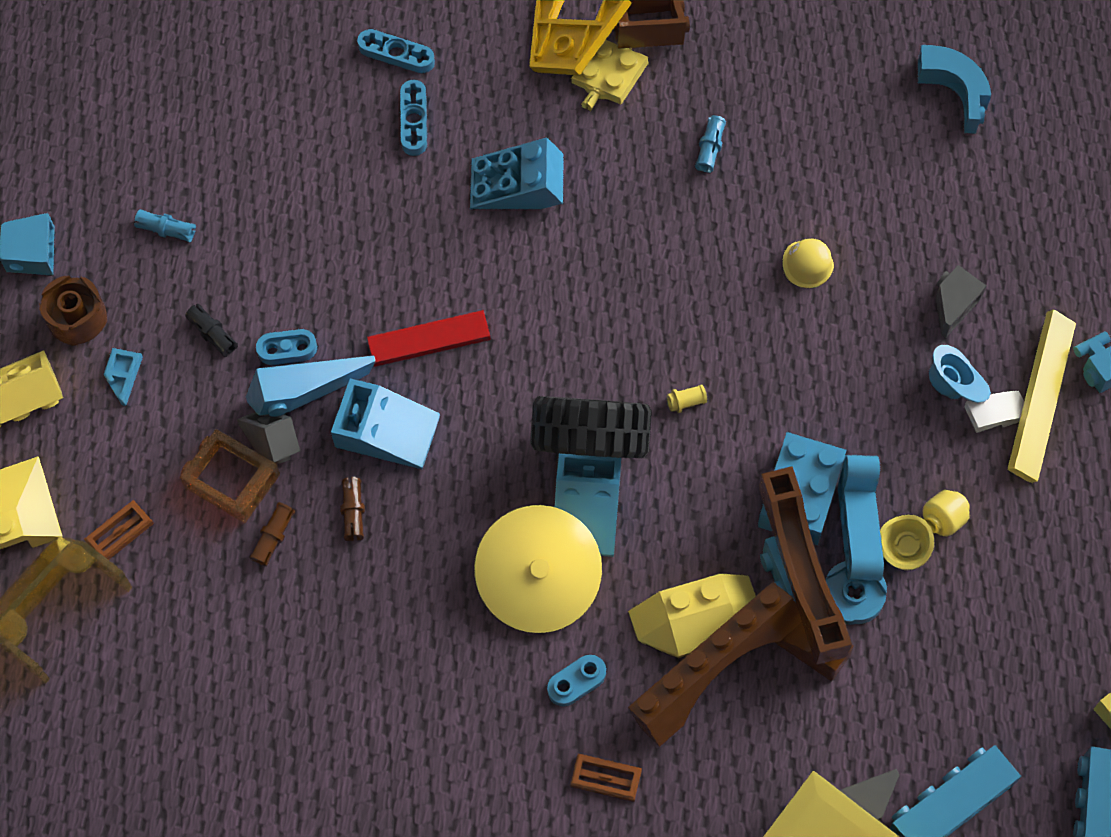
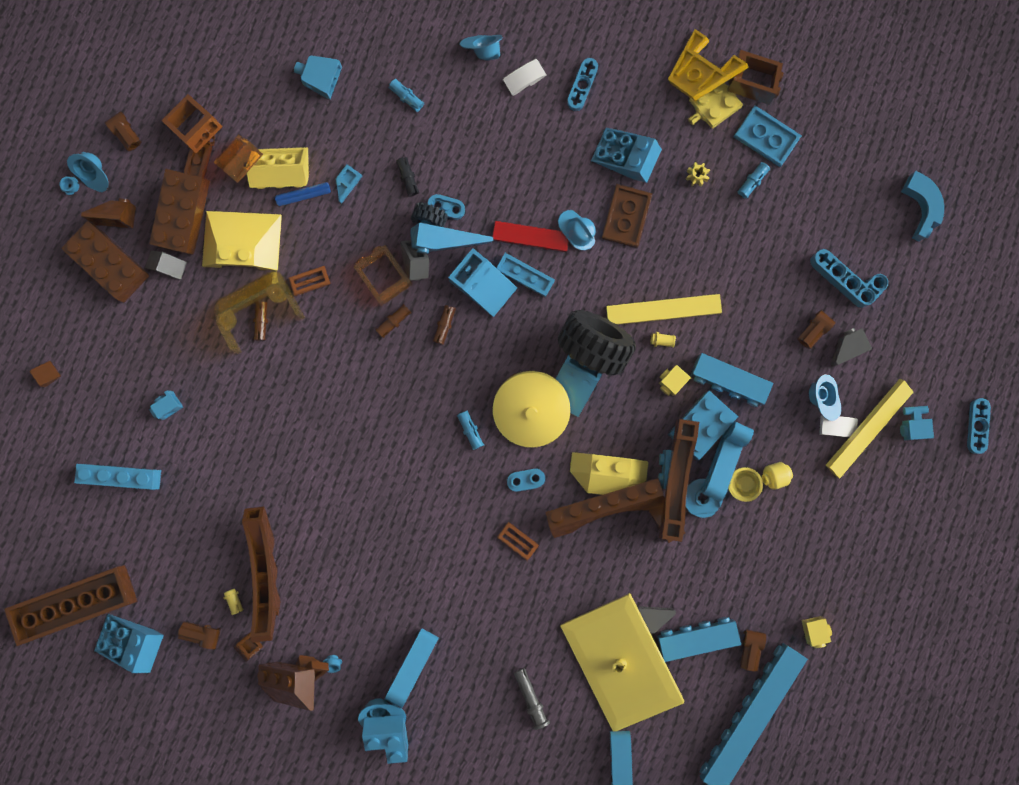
camera: 25 degrees right, 20 degrees up
(61, 415) = (302, 194): none -> blue axle
(63, 619) = (260, 321): none -> reddish brown pin
(73, 310) = (321, 130): reddish brown brick -> none
(253, 123) = (484, 46): none -> dark azure piece
(262, 357) = (428, 215): none -> black wheel
(326, 137) = (524, 76): none -> white slope
(388, 42) = (591, 25): dark azure beam -> none
(445, 391) = (525, 275): none -> dark azure plate
(458, 642) = (470, 430): none -> dark azure pin
(494, 300) = (577, 229): none -> dark azure piece
(555, 258) = (627, 216): none -> reddish brown tile
(632, 171) = (698, 180): none -> light yellow gear
(670, 357) = (664, 309): none -> light yellow tile
(701, 84) = (767, 136): none -> dark azure tile
(729, 445) = (673, 380): none -> light yellow brick
(808, 263) = (774, 284): light yellow helmet -> none
(812, 410) = (731, 379): none -> dark azure brick
(897, 292) = (818, 326): none -> reddish brown piece
(901, 210) = (845, 275): none -> dark azure beam
(1041, 775) = (752, 646): none -> reddish brown piece

